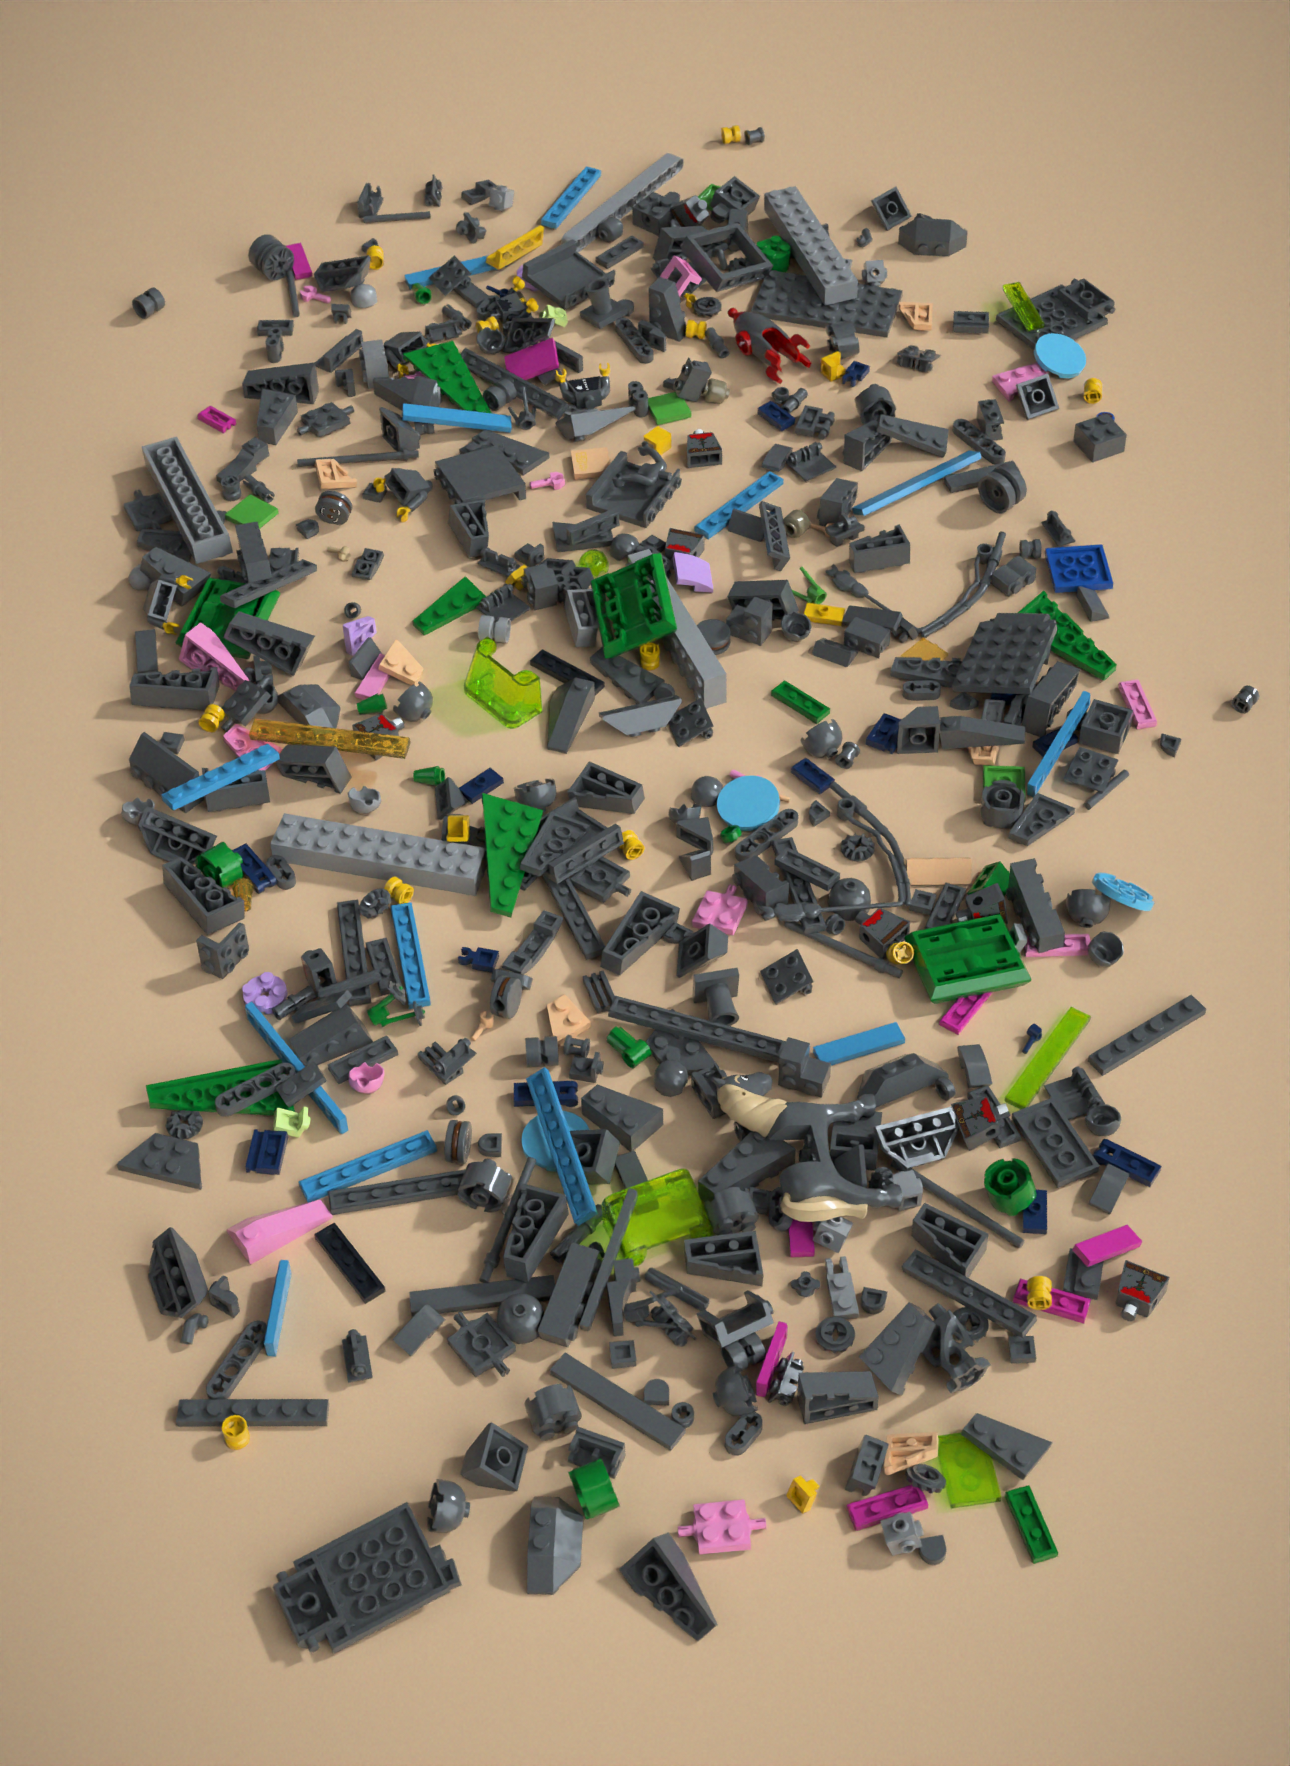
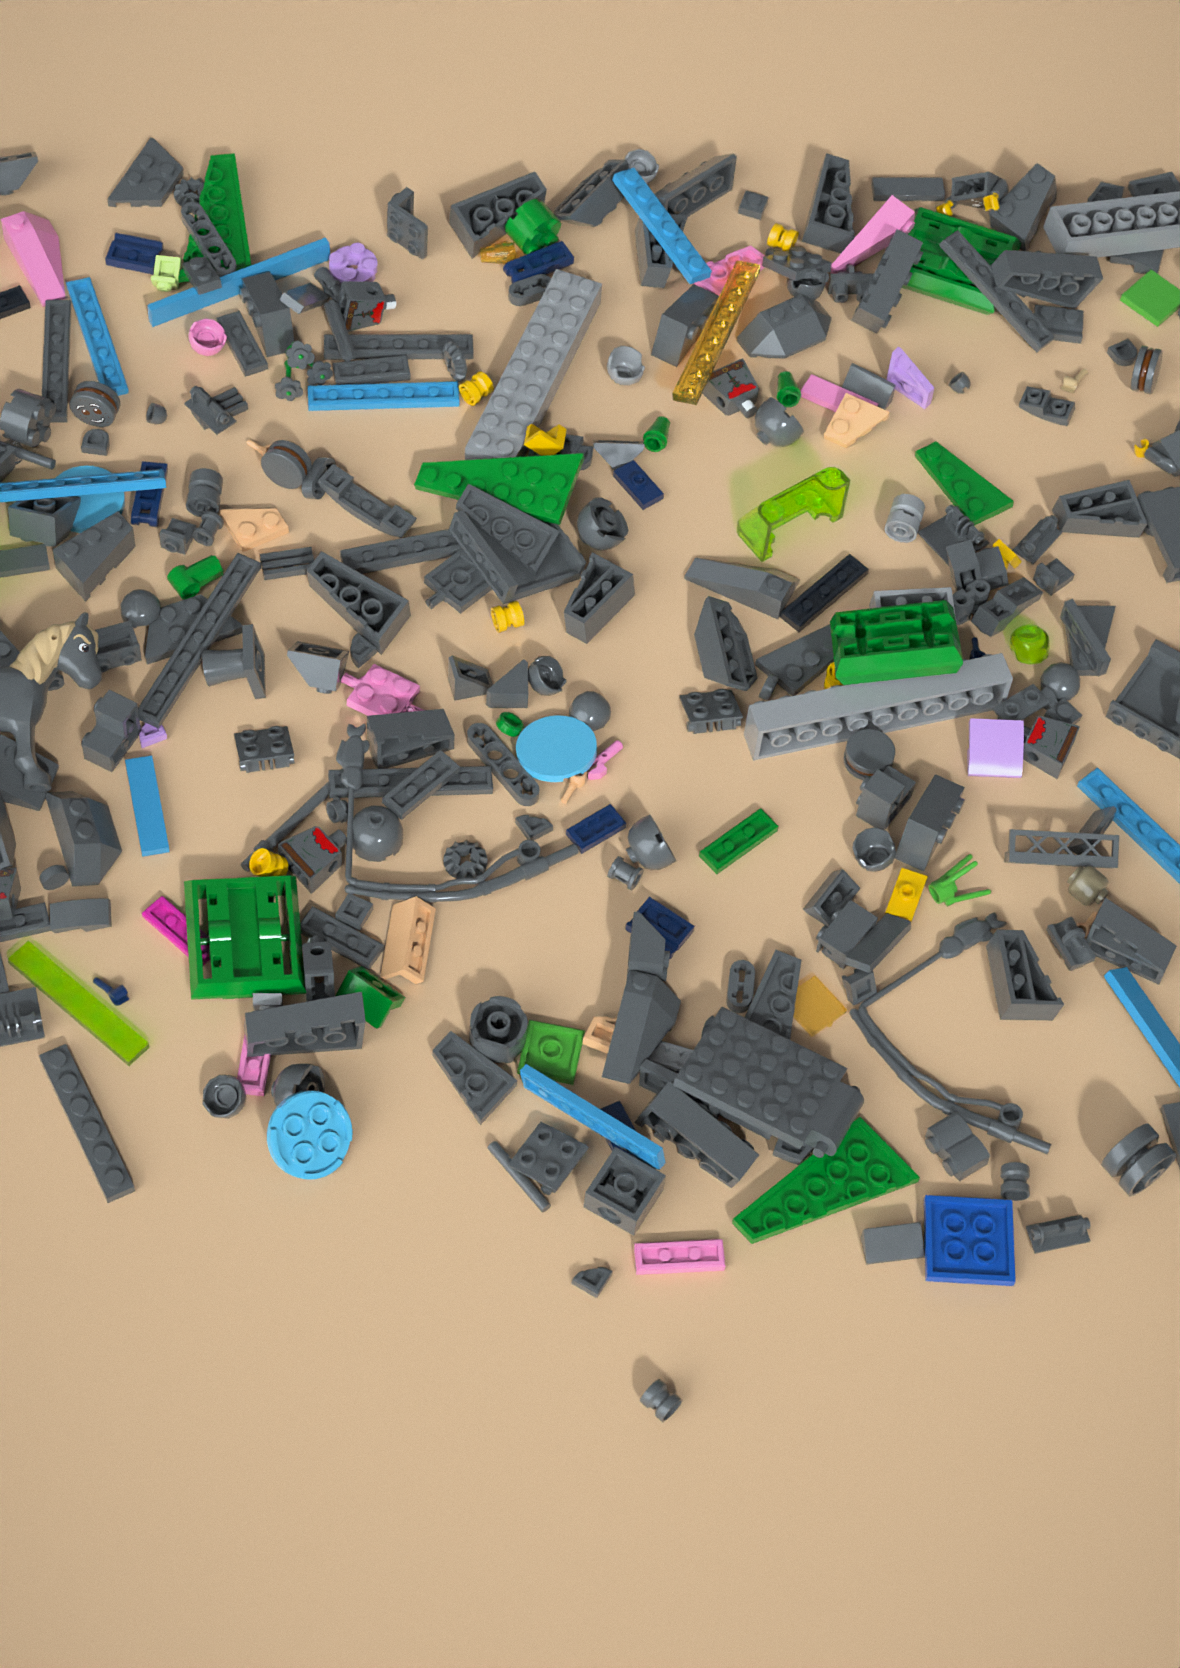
camera: 90 degrees right, 10 degrees up
(481, 960) = (358, 457): dark blue plate -> none

